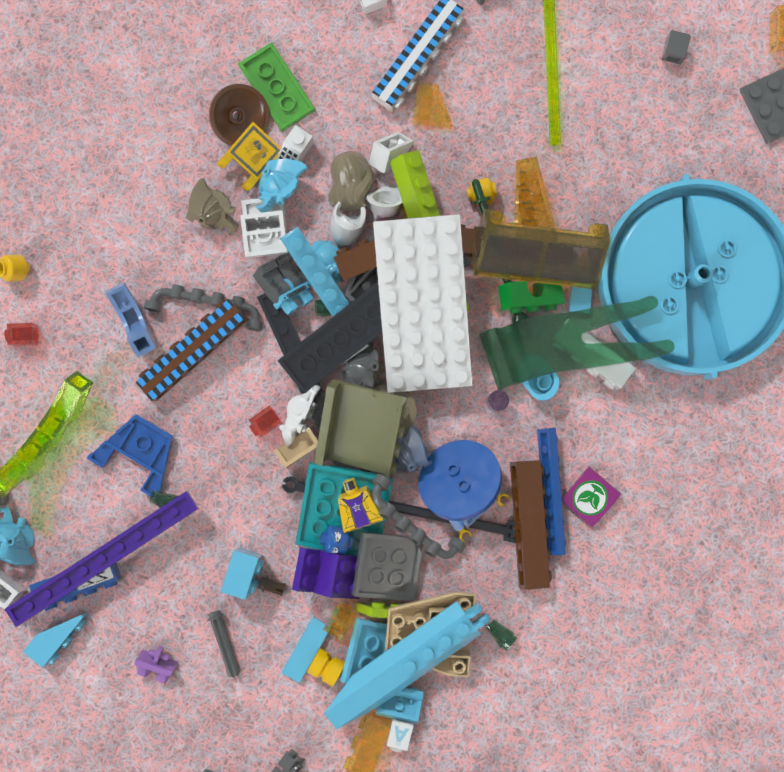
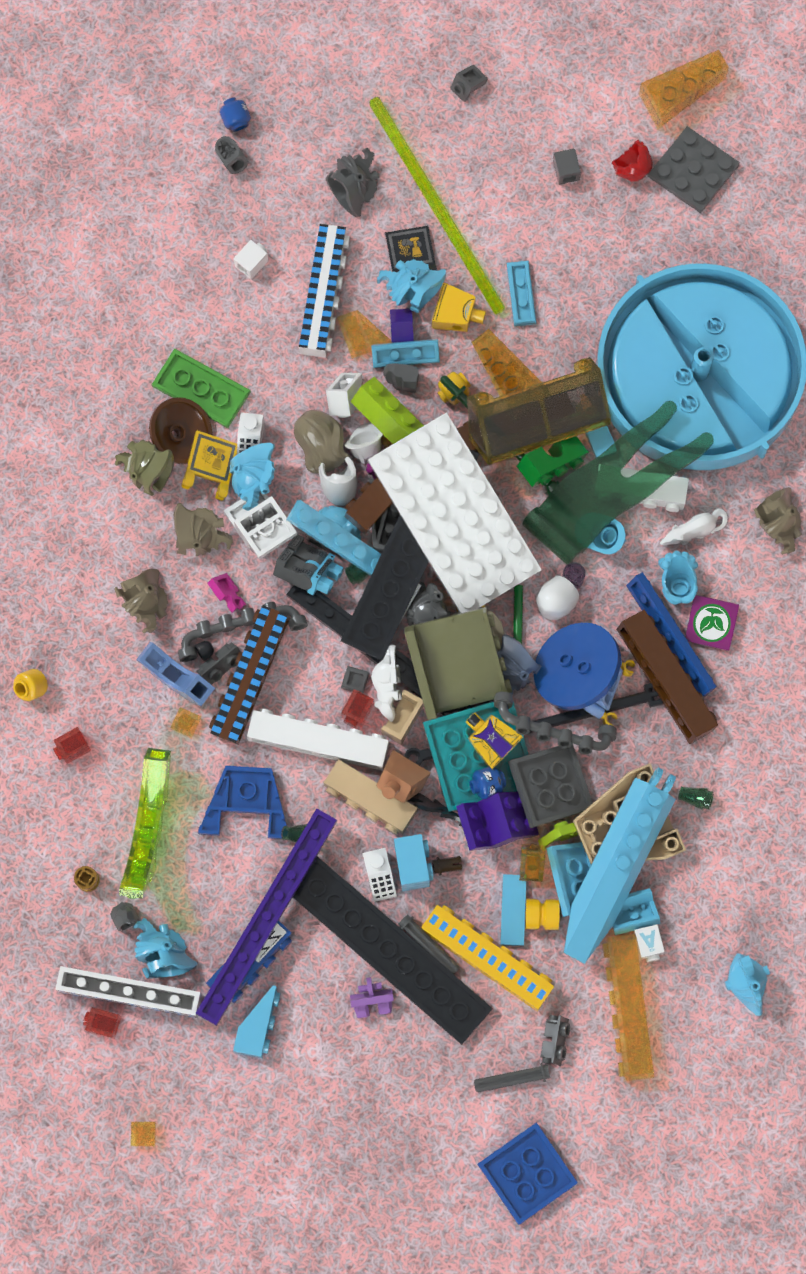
camera: 25 degrees left, 10 degrees down
(123, 361) = (185, 722): none -> clear yellow plate
(140, 242) = (144, 598): none -> dark tan helmet
(166, 329) = (212, 670): none -> dark grey hinge
(168, 309) = (204, 650): none -> black hinge
(191, 634) = (391, 952): none -> black plate
(196, 131) = (146, 465): none -> olive helmet
(210, 267) = (226, 590): none -> dark pink plate
(213, 566) = (379, 874): none -> white slope
(220, 431) = (317, 739): none -> white brick
(238, 499) = (363, 794): none -> tan brick
(264, 679) = (487, 957): none -> yellow brick
(269, 499) = (402, 778): none -> nougat torso
(277, 395) = (355, 679): none -> dark grey tile
(280, 527) = (426, 804): none -> black piece
(435, 411) = (518, 613): none -> green bar
(445, 160) = (402, 376): none -> dark grey rock
(458, 141) = (405, 353): none -> medium azure tile
(465, 119) = (401, 325): none -> dark purple slope
(474, 412) = (557, 598): none -> white piece
(494, 84) = (412, 283): none -> medium azure helmet
(507, 55) = (410, 245): none -> black flag
(518, 125) = (456, 310): none -> yellow torso
(580, 138) = (521, 293): none -> medium azure tile
(583, 447) = (679, 577): none -> medium azure hair
(620, 411) = (697, 527): none -> white animal
(693, 439) = (780, 519): none -> dark tan helmet
(734, 73) = (634, 163): none -> red hair

